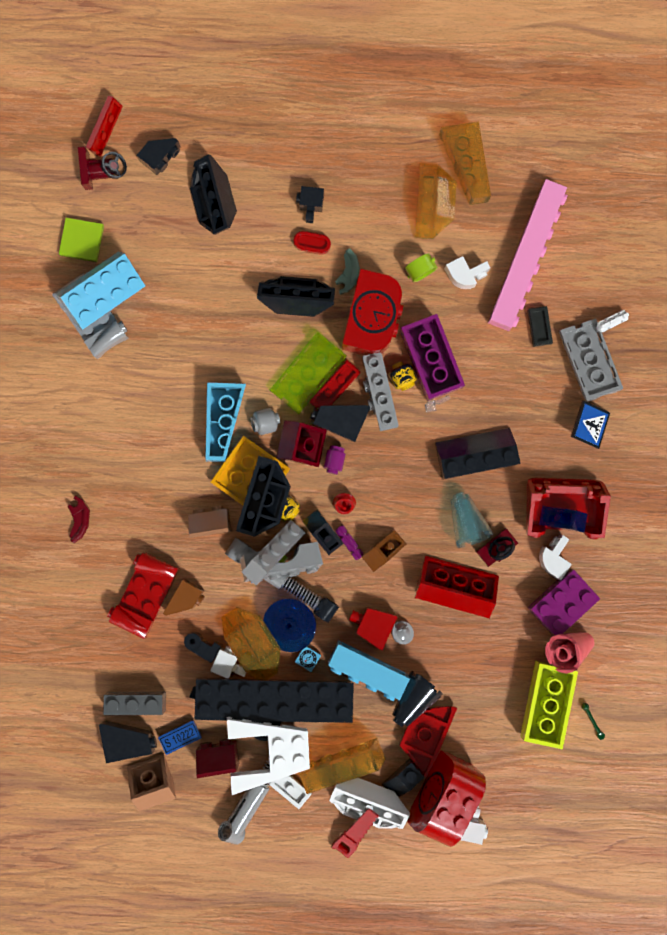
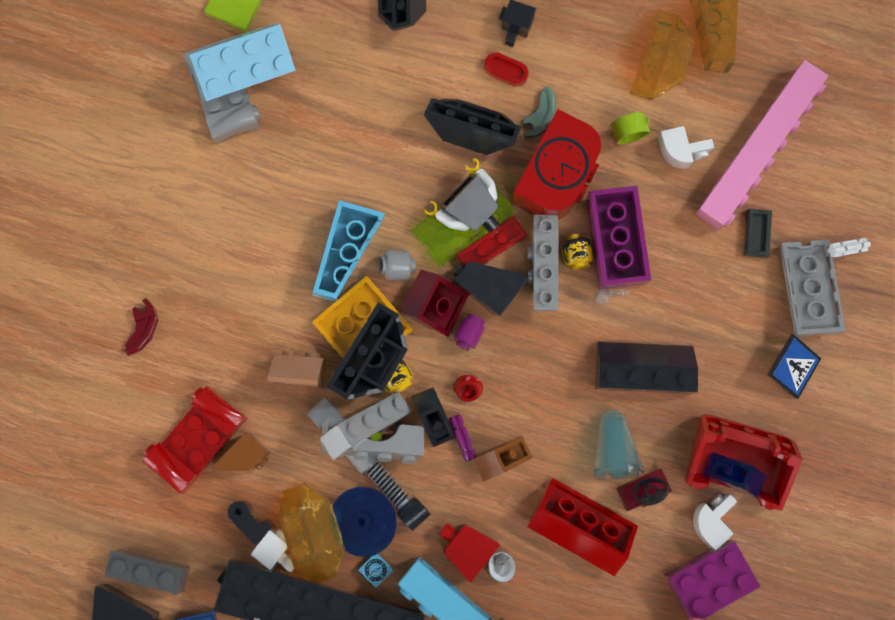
camera: 15 degrees right, 5 degrees down
(310, 360) = (469, 203): none -> torso

